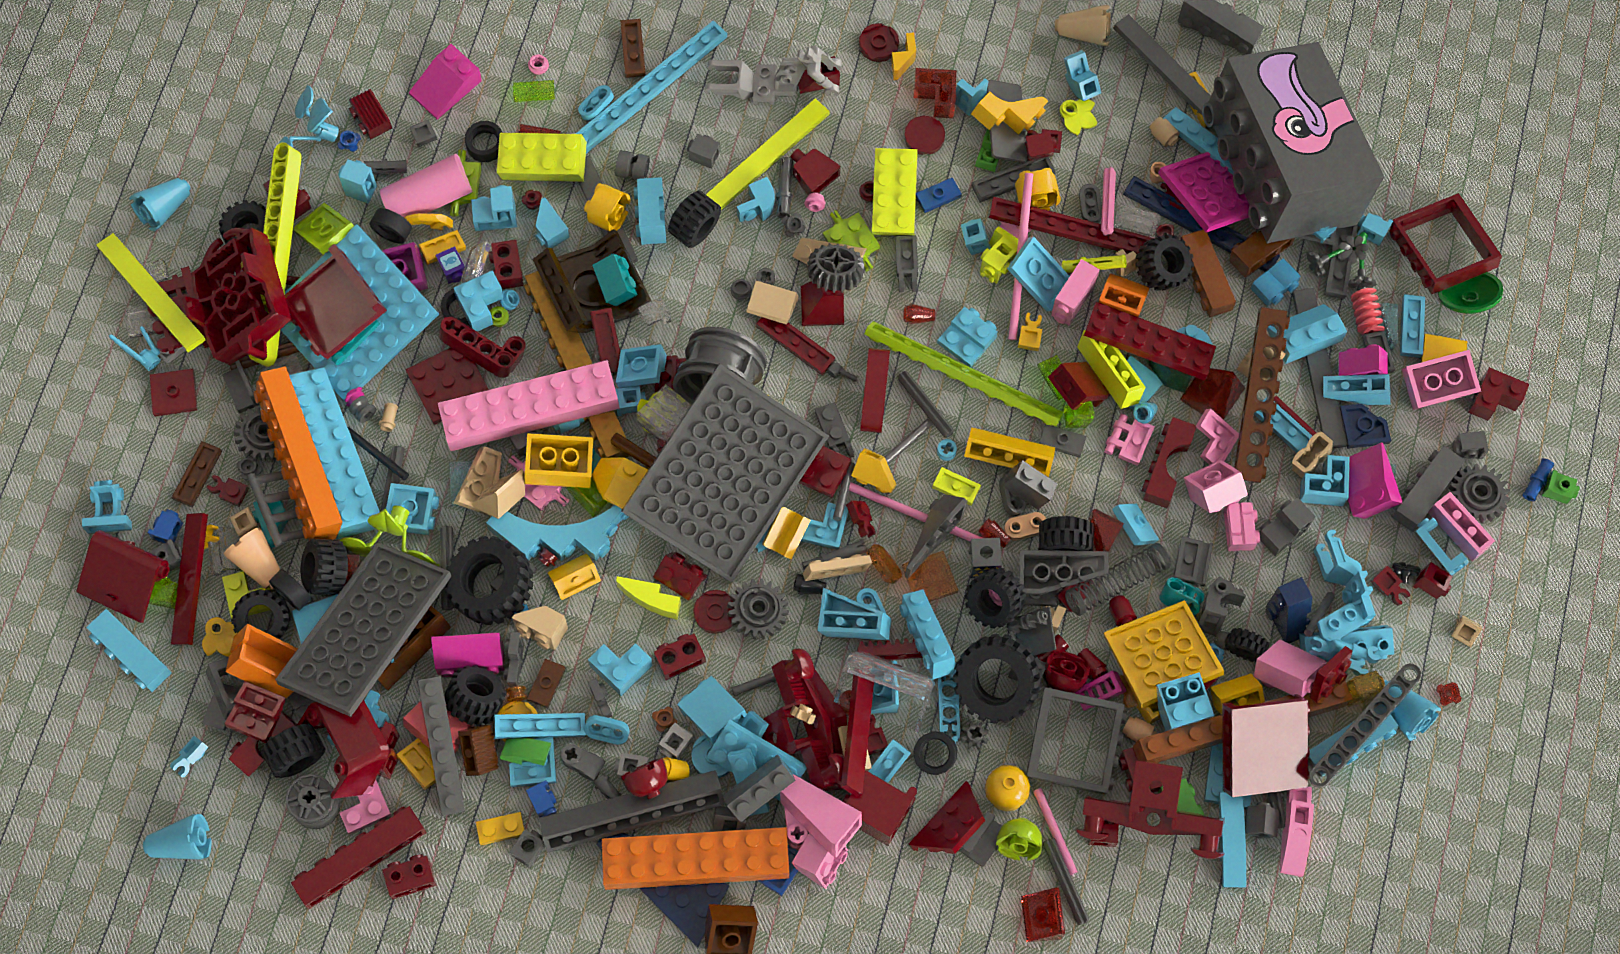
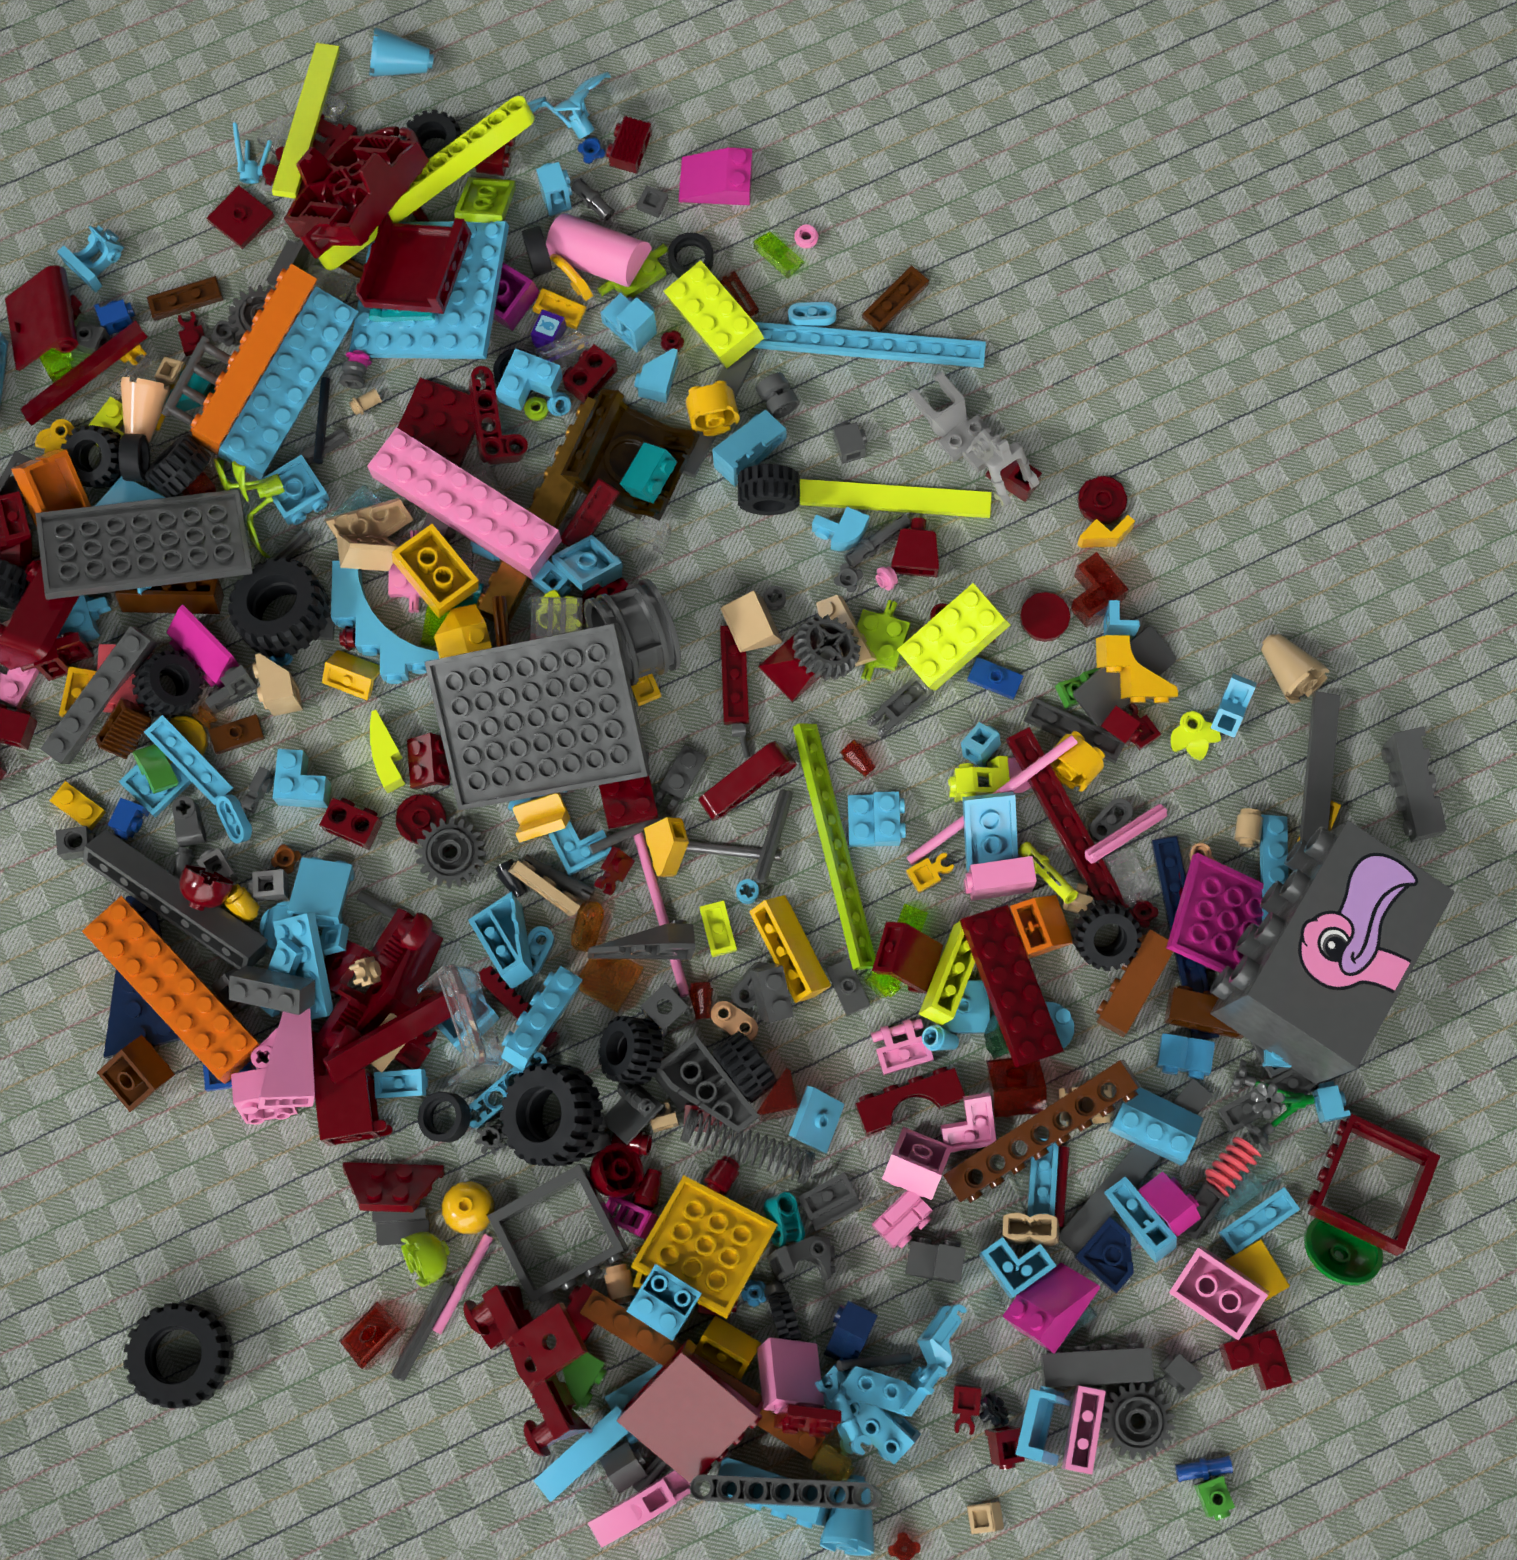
camera: 55 degrees right, 5 degrees up
(740, 289) = (743, 585): dark grey plate -> none

